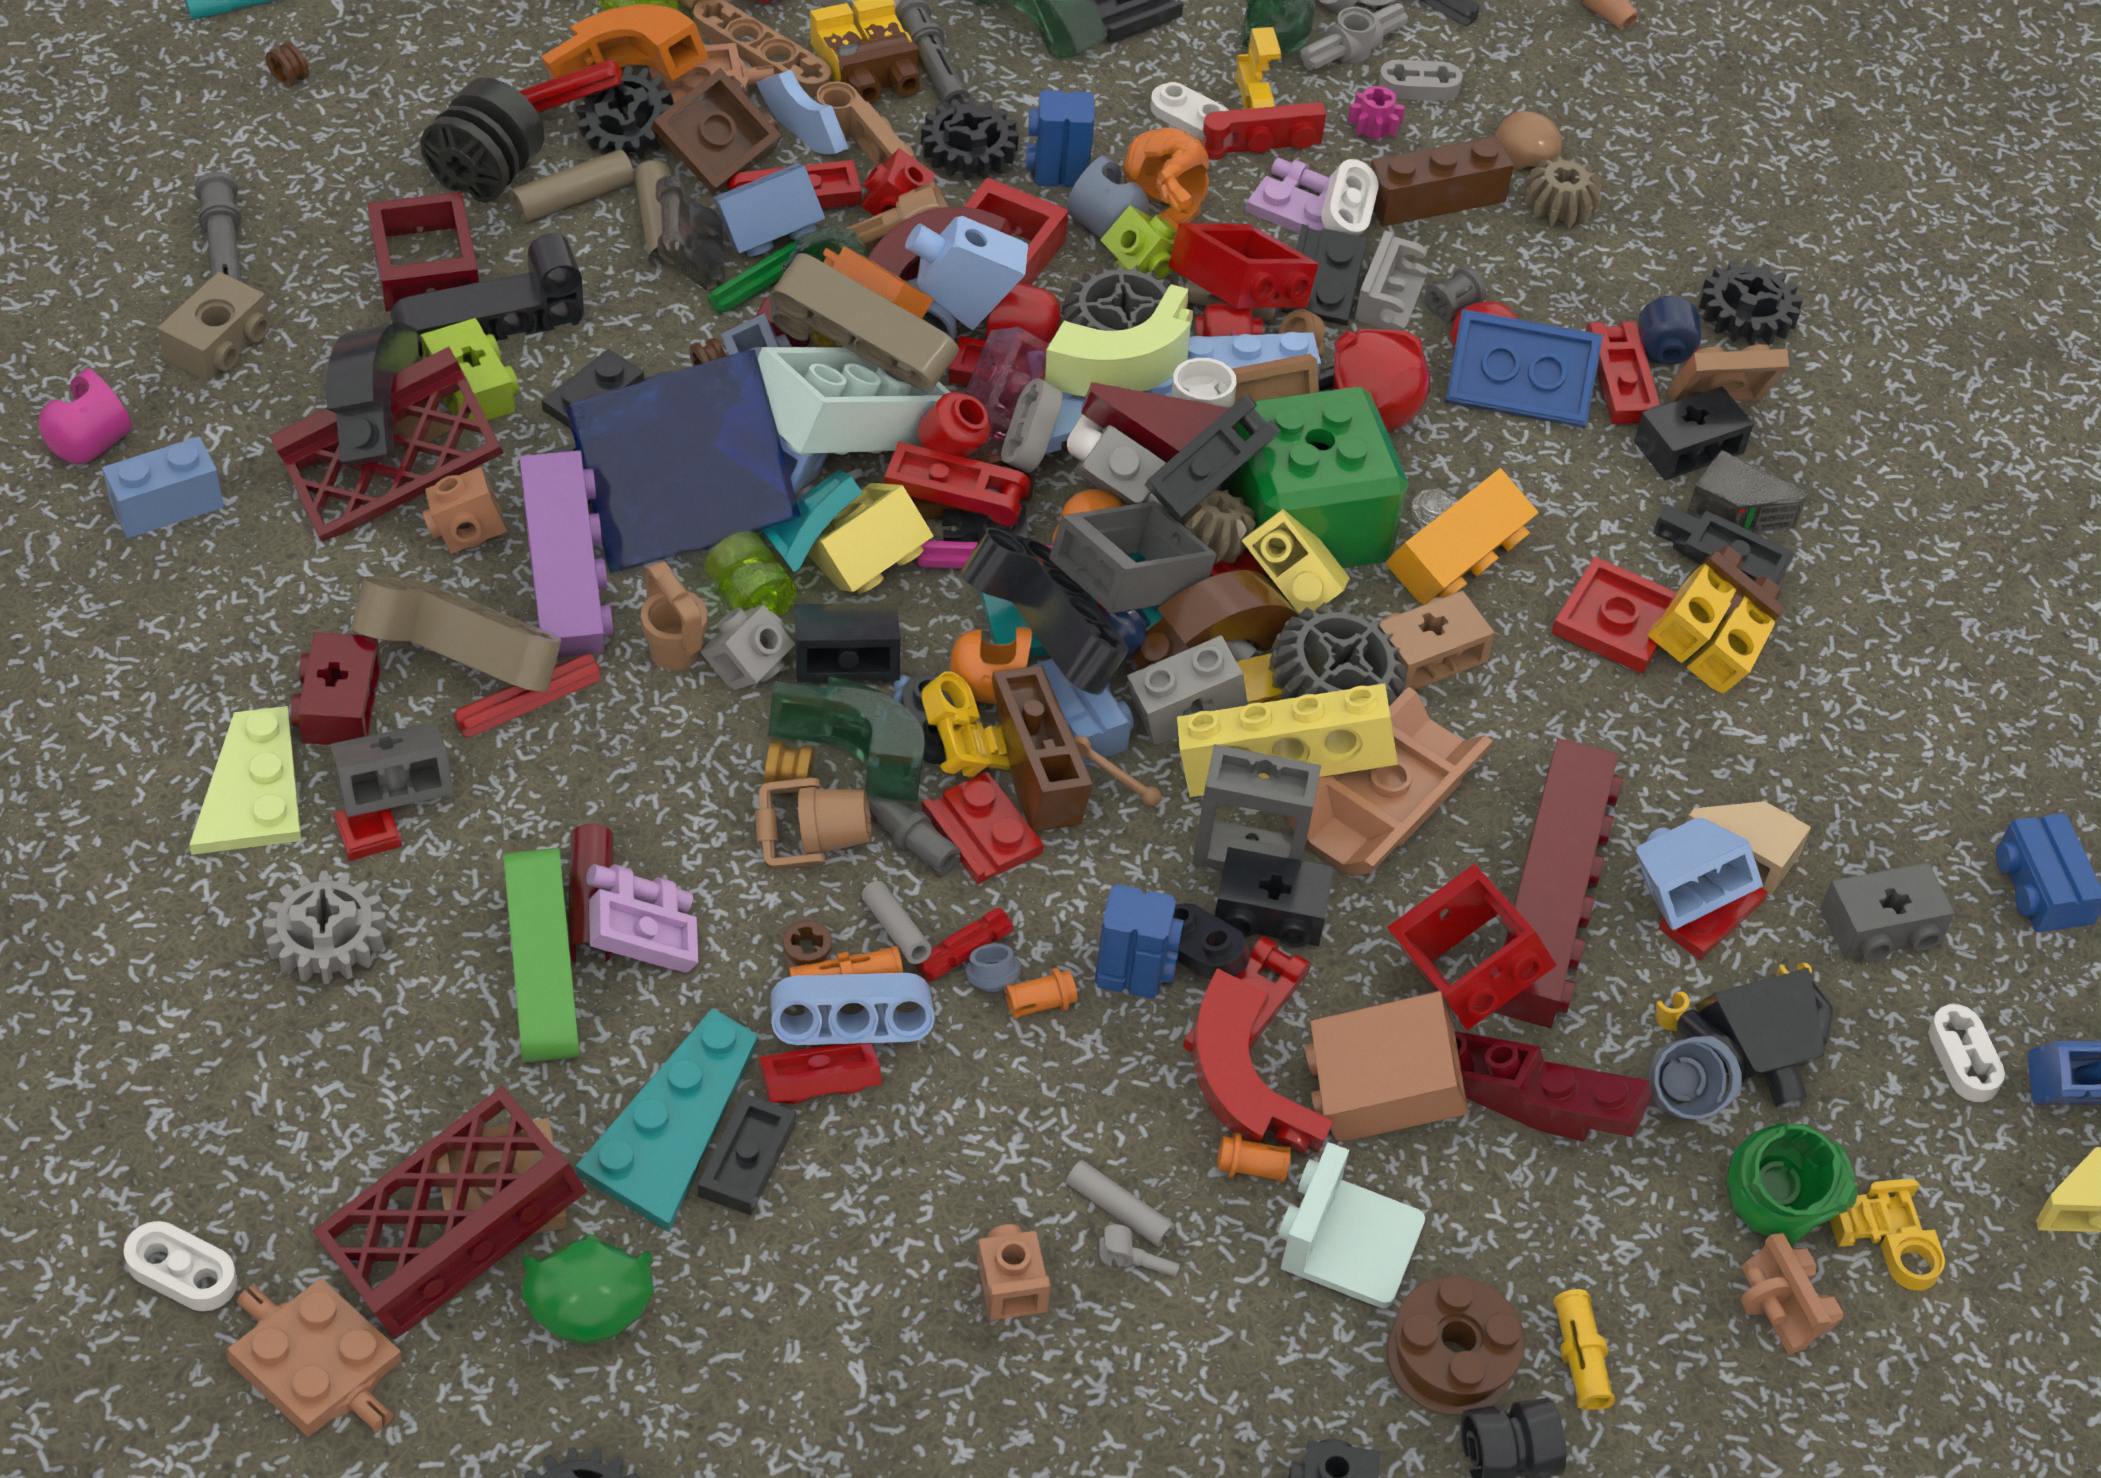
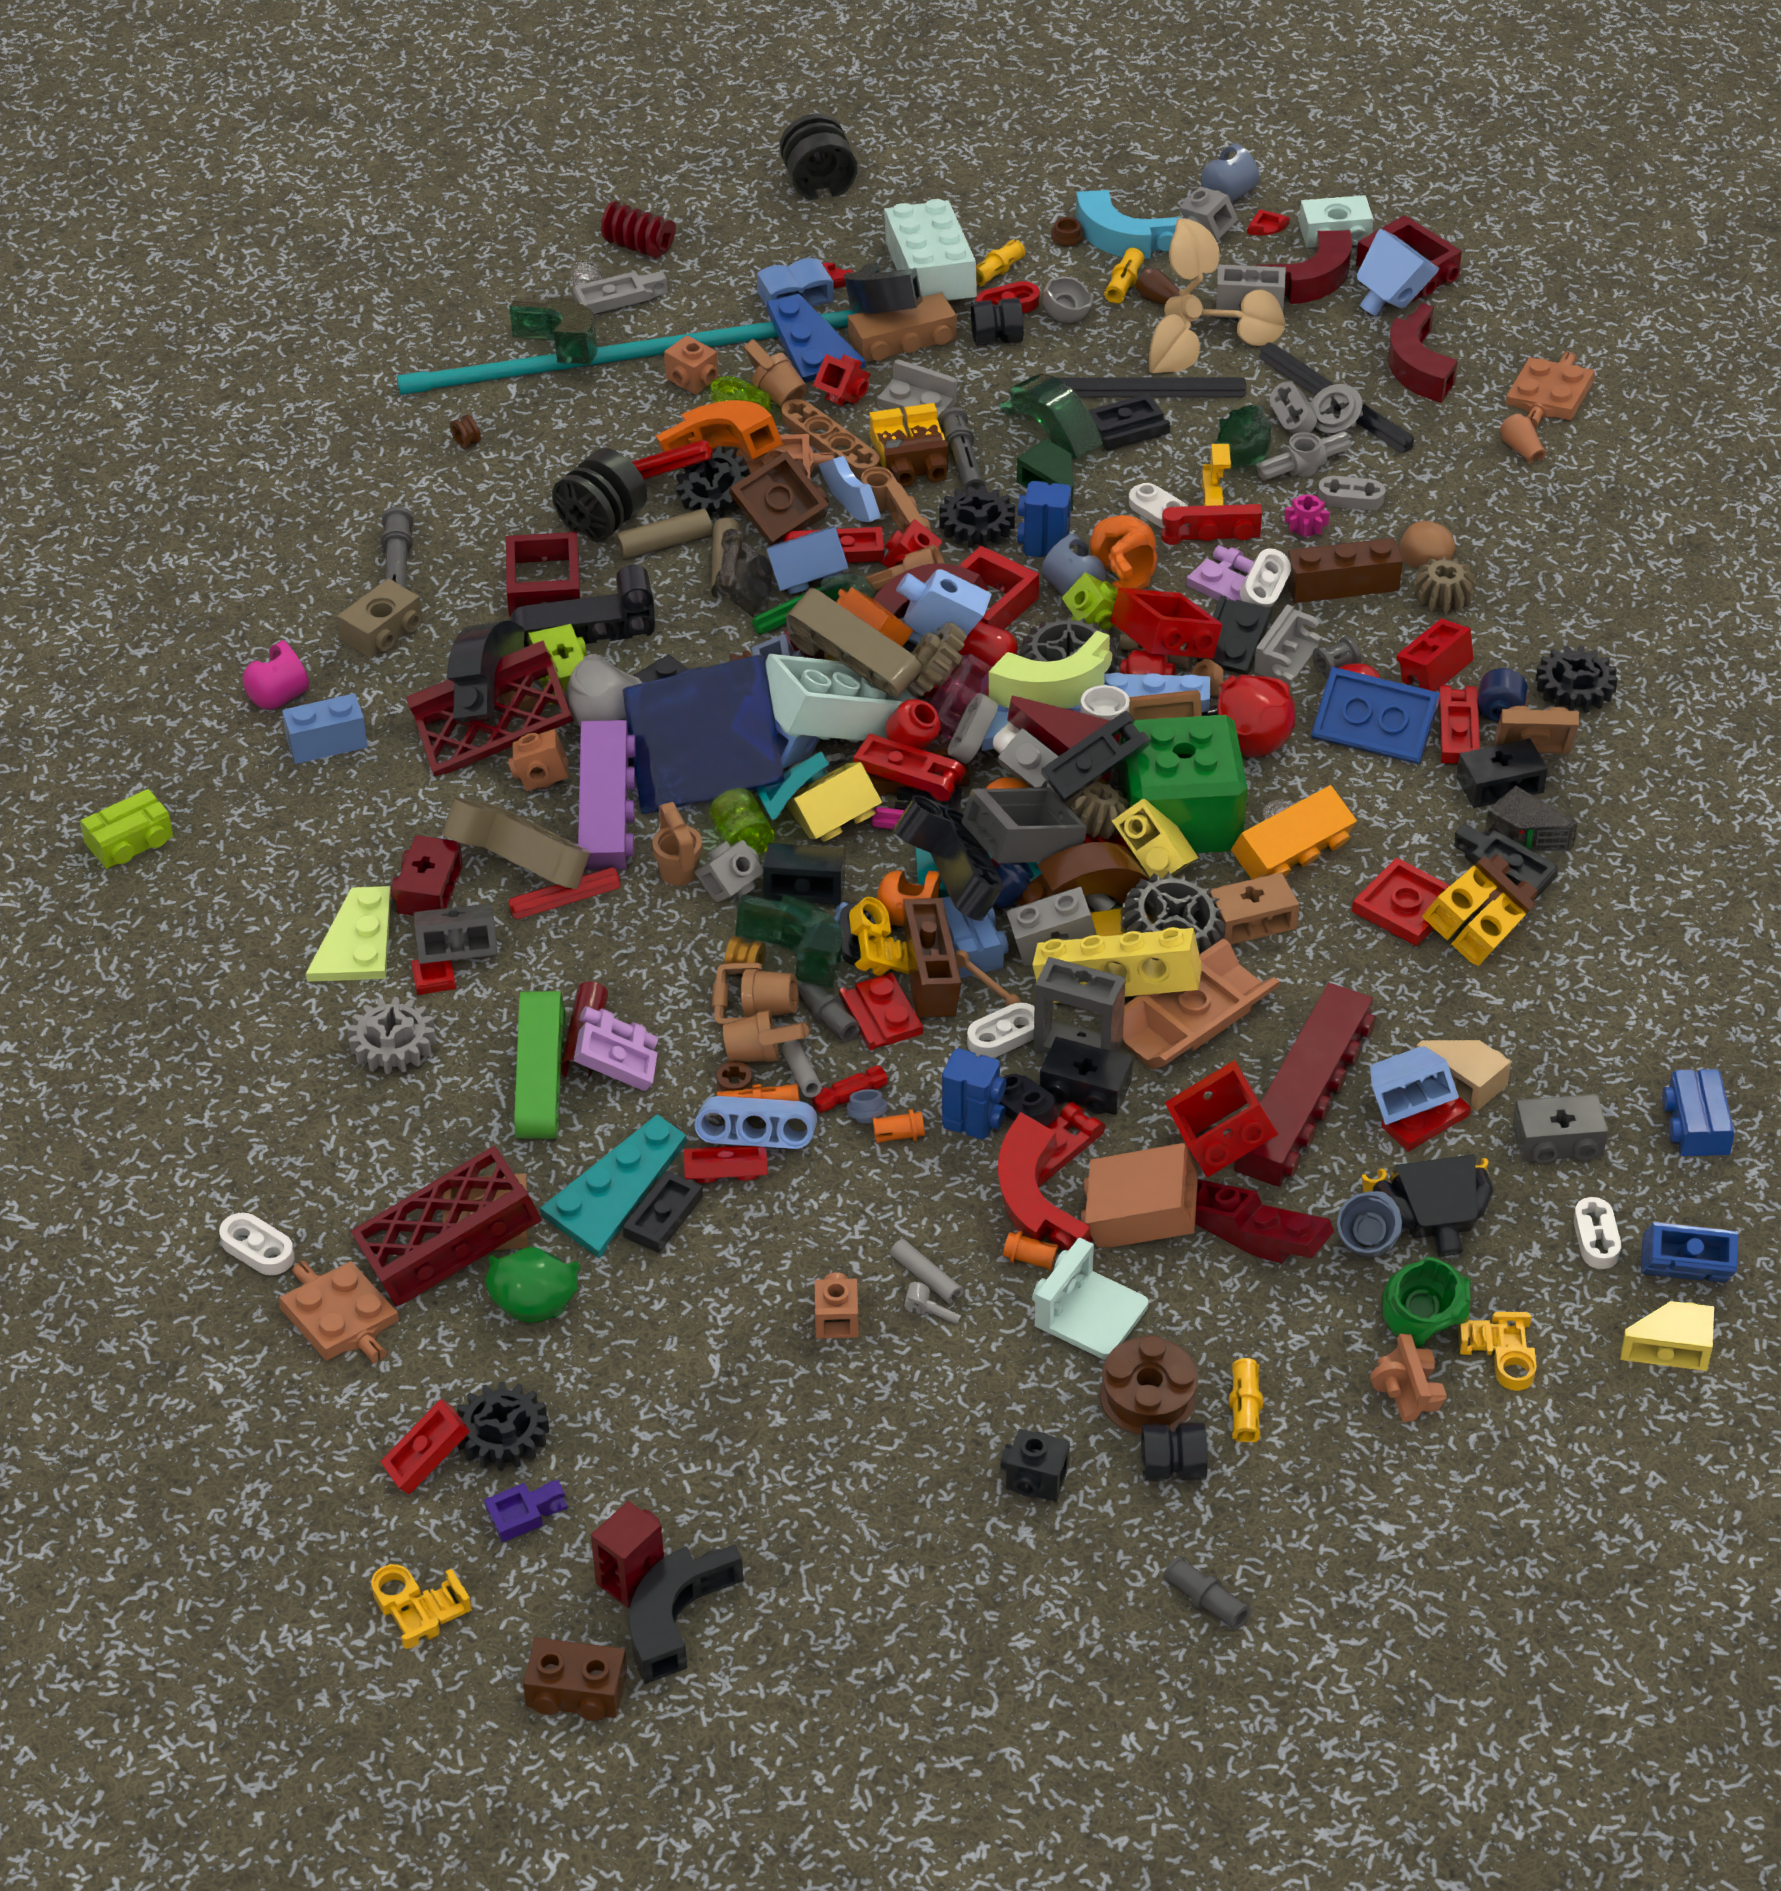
camera: 15 degrees right, 5 degrees down
(530, 410) = (597, 690): none -> light grey helmet
(831, 885) = (757, 1038): none -> medium nougat piece
(975, 329) = (938, 657): none -> dark tan gear
(1043, 66) = (1046, 464): none -> dark green slope
(1145, 839) = (1001, 1030): none -> white plate
(1577, 282) = (1436, 655): none -> red hinge

